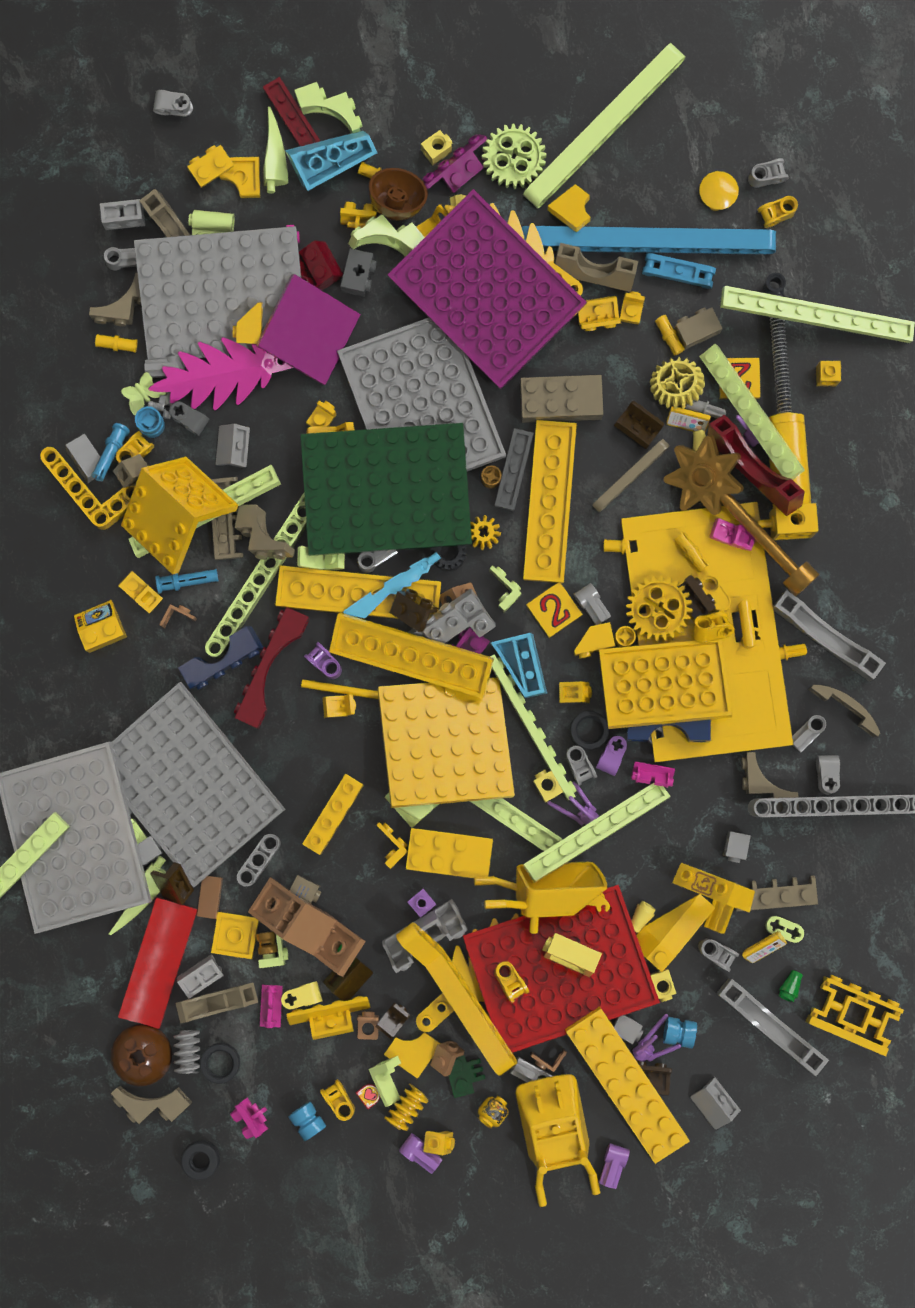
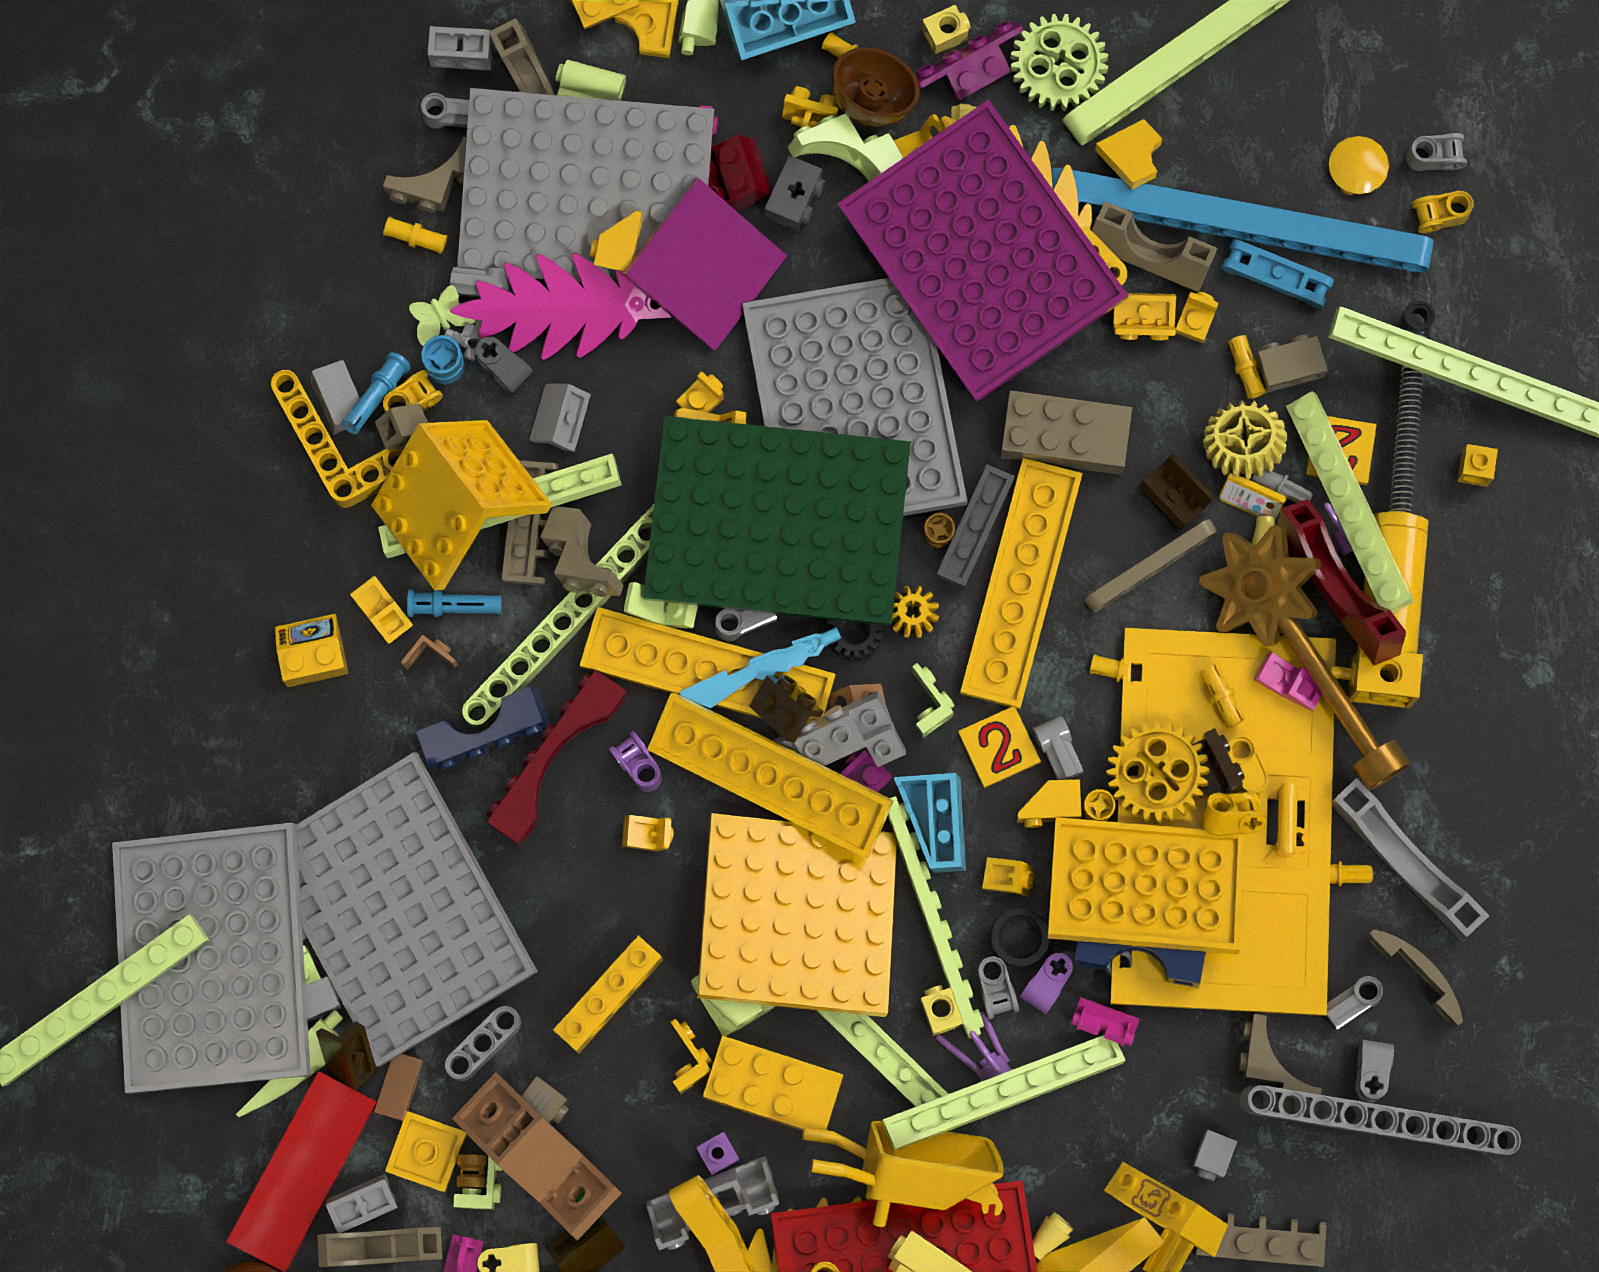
camera: 15 degrees right, 5 degrees down
(339, 689) = (653, 808): yellow bar -> none

